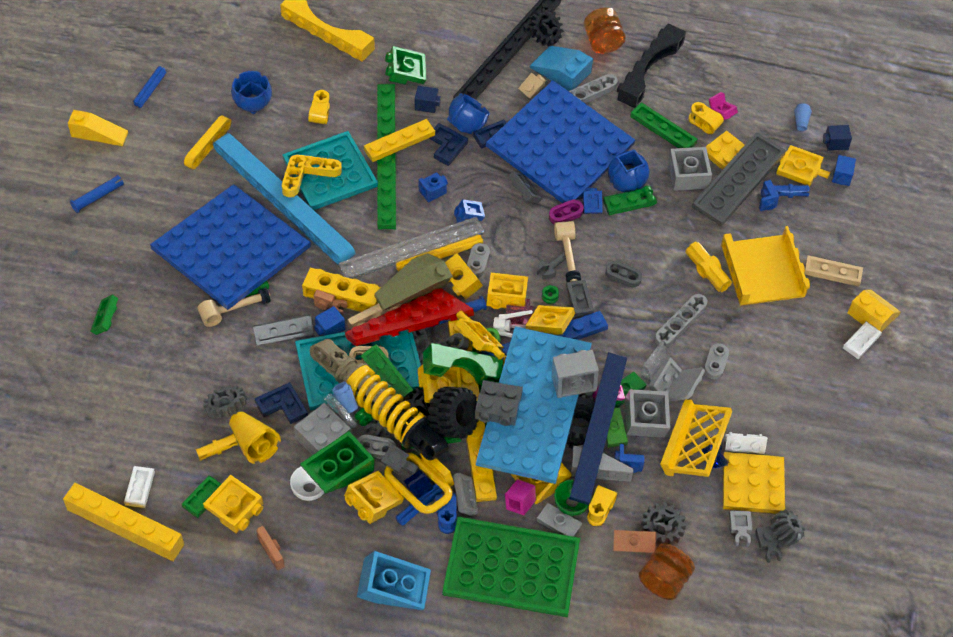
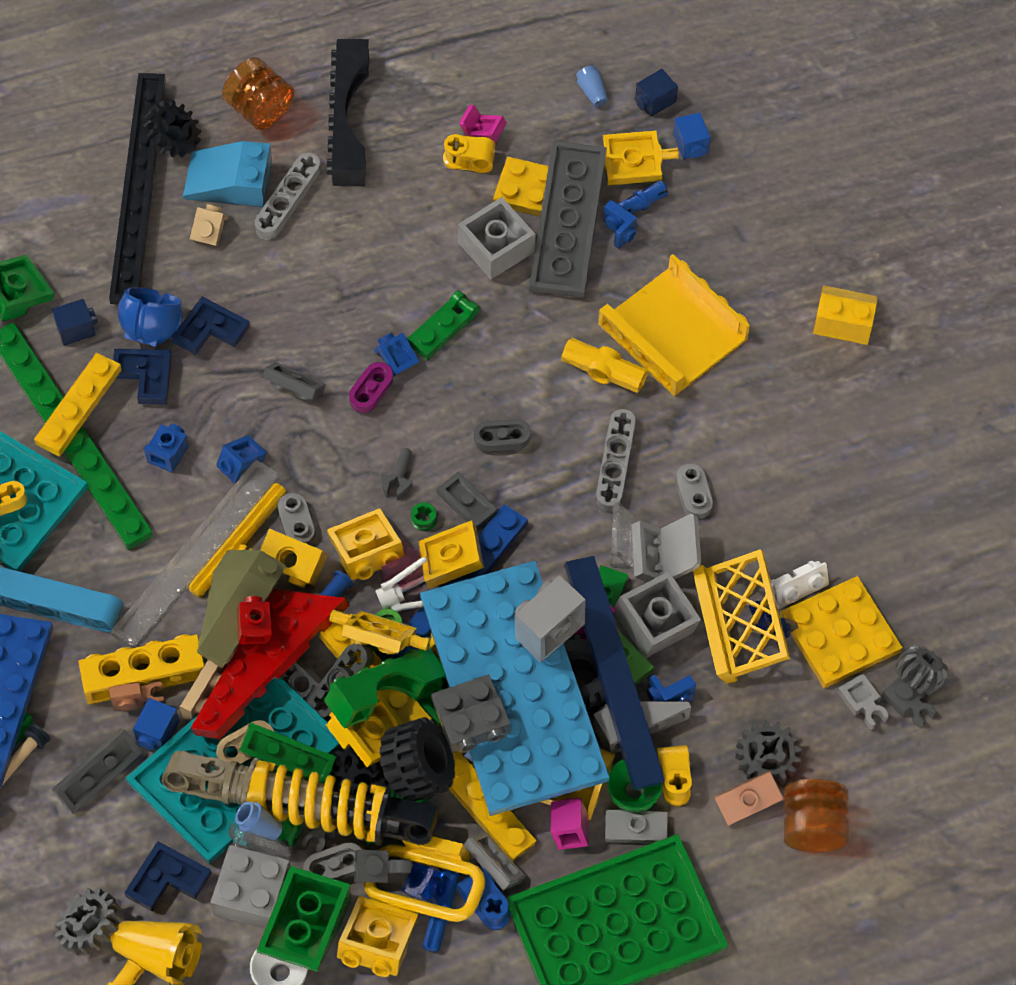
camera: 30 degrees left, 5 degrees up
(410, 298) = (251, 630): none -> red brick
(560, 143) = (299, 291): blue plate -> none
(565, 232) = (389, 418): tan piece -> none
(628, 180) = (412, 297): blue piece -> none
(663, 127) = (422, 195): green plate -> none
(833, 271) = (763, 284): tan plate -> none
(862, 340) = (855, 362): white plate -> none

